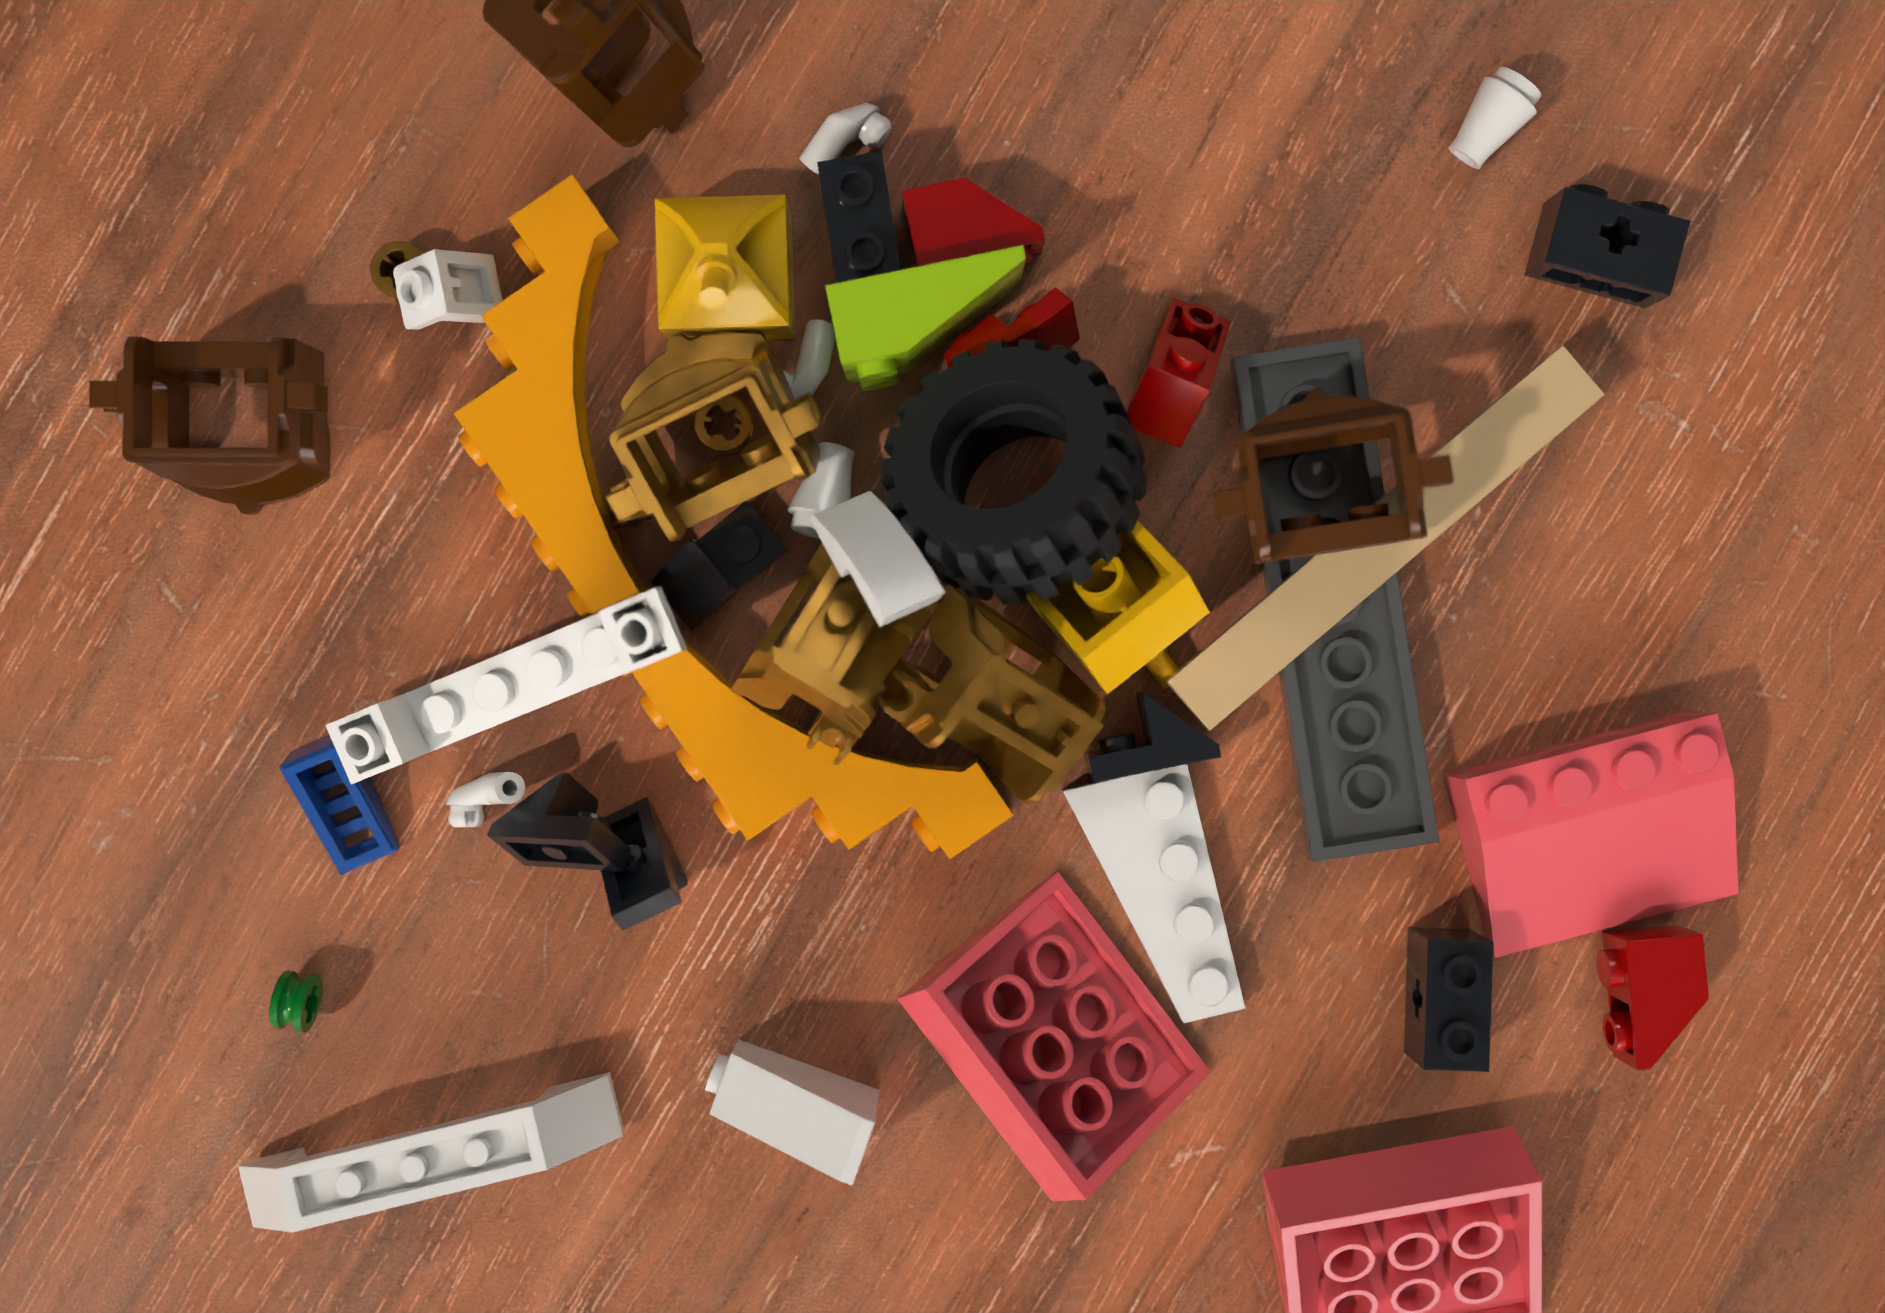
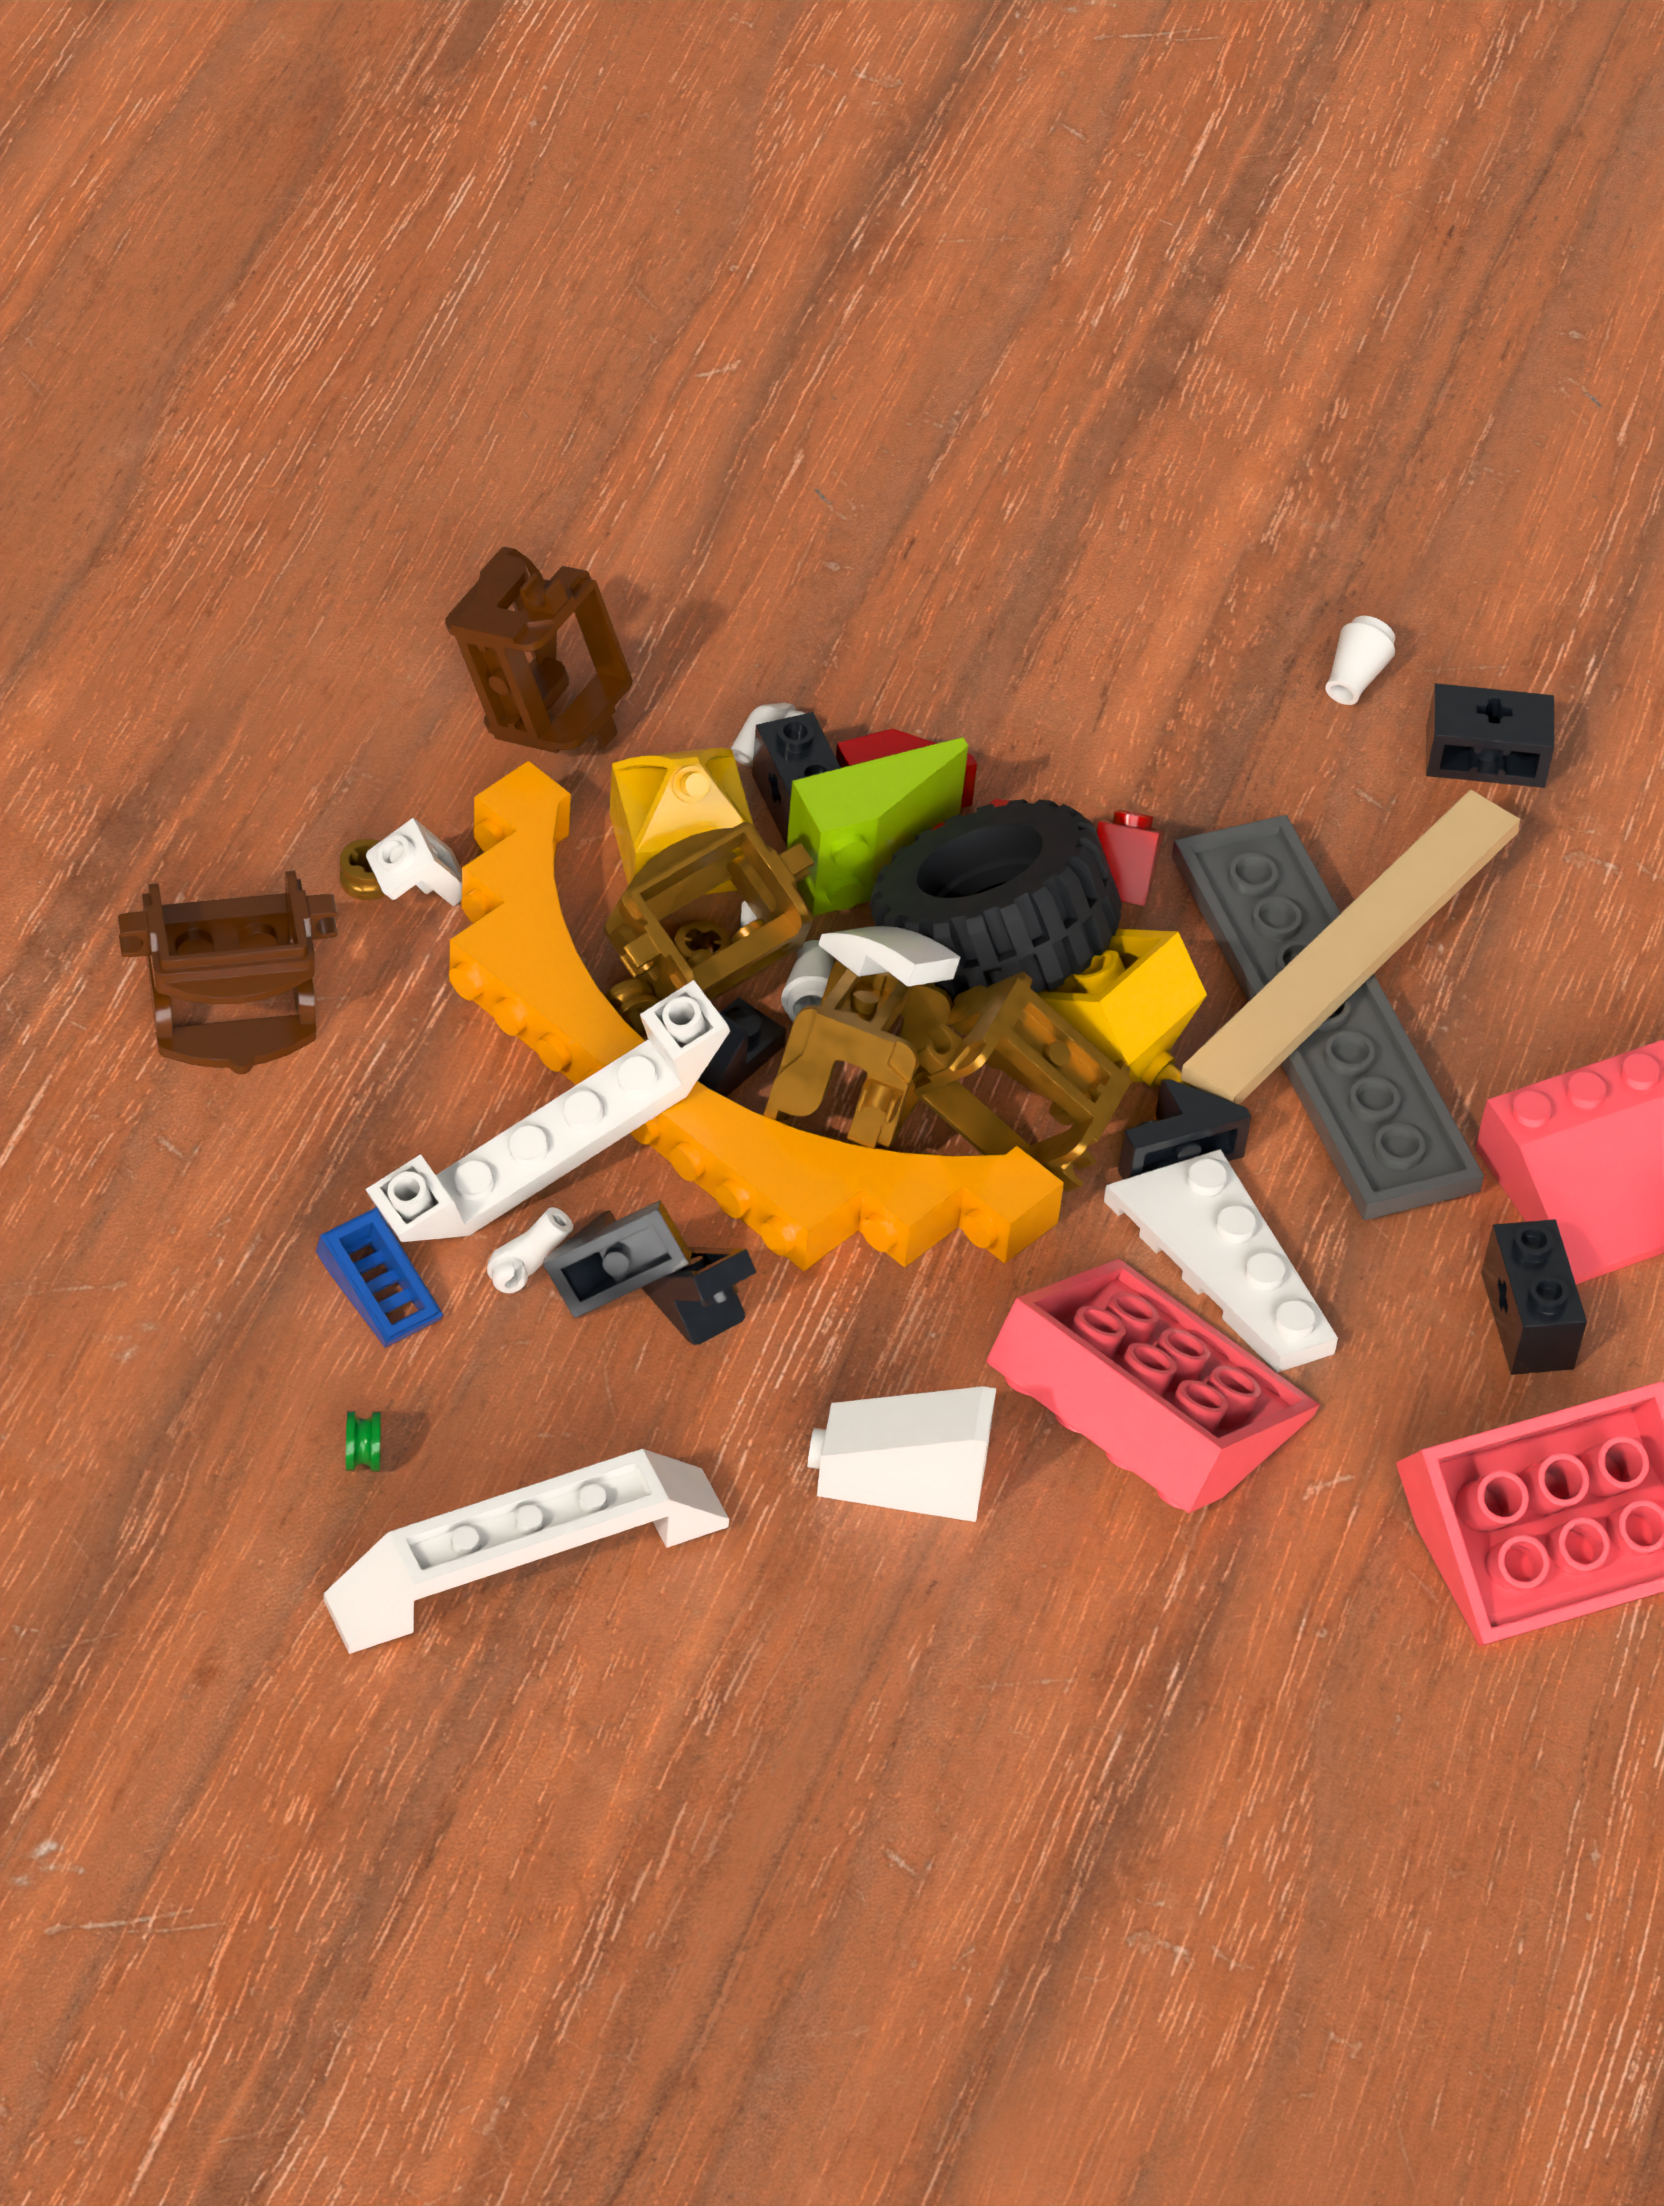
camera: 20 degrees left, 40 degrees down
(1323, 424) = (1303, 920): reddish brown animal -> none

